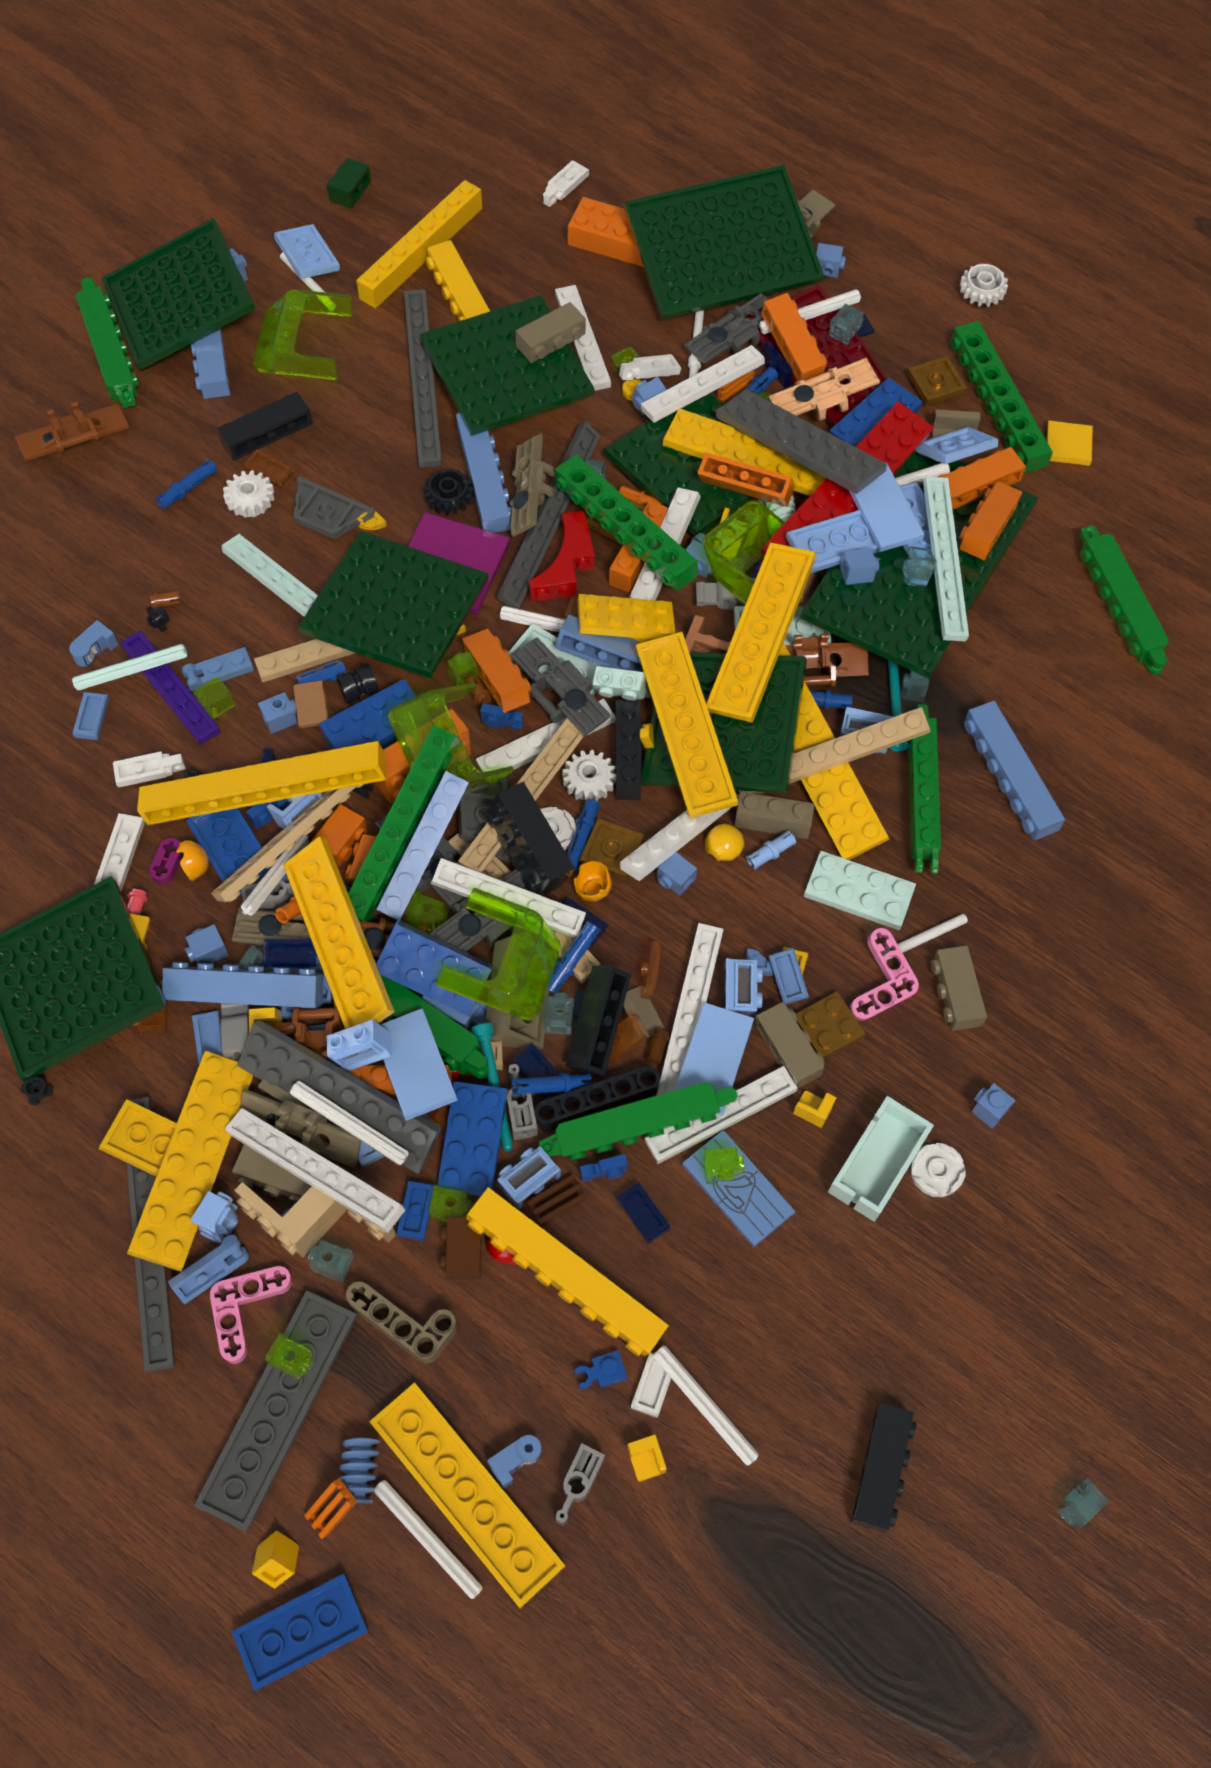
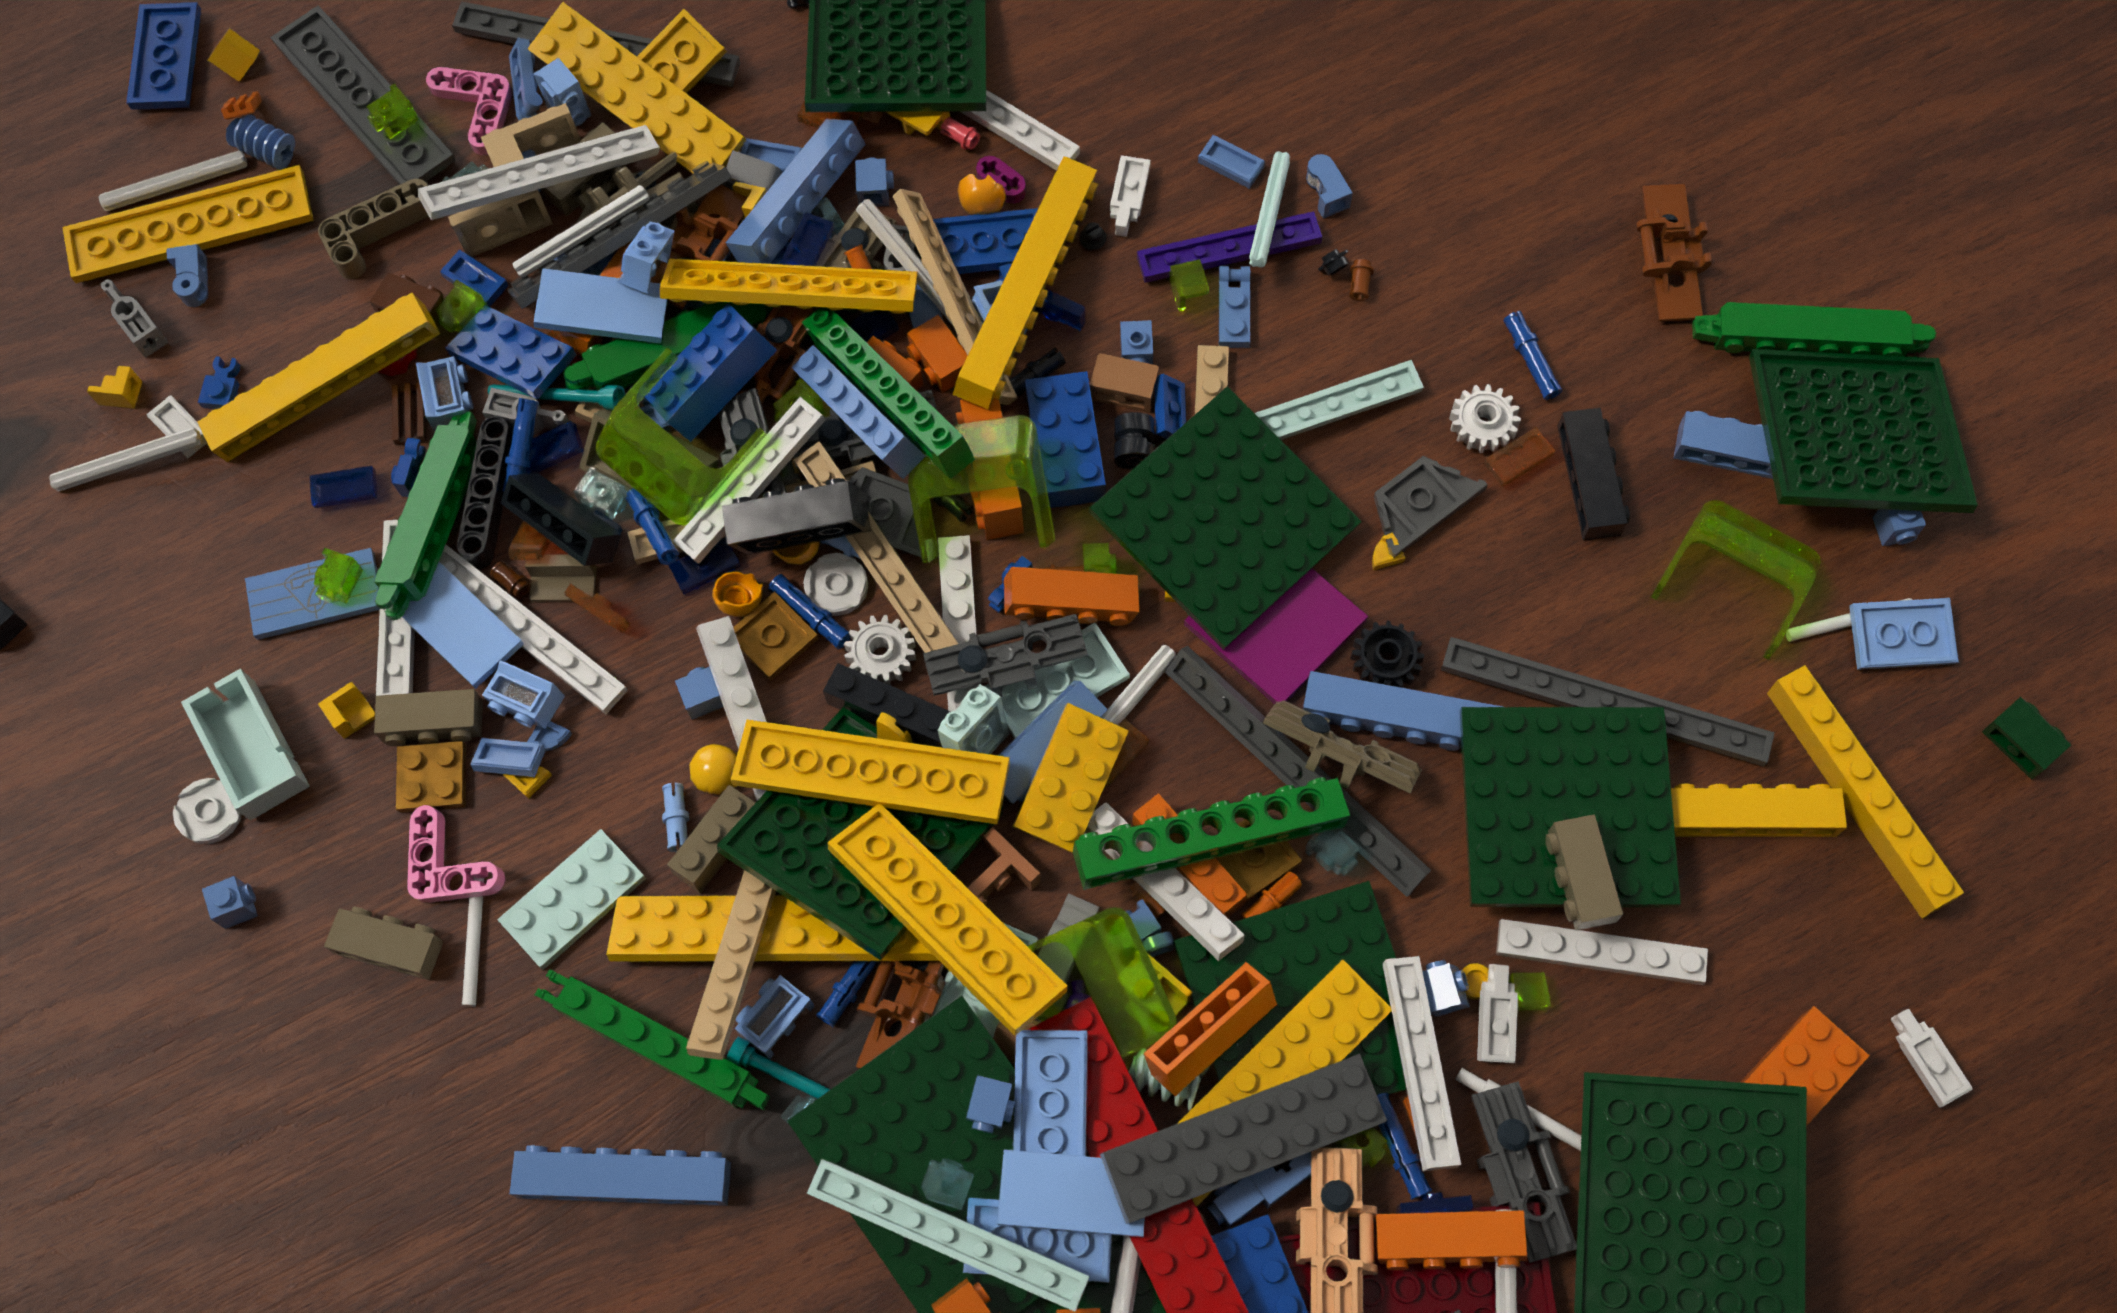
camera: 120 degrees right, 5 degrees up
(574, 556) = (1217, 774): red arch -> none

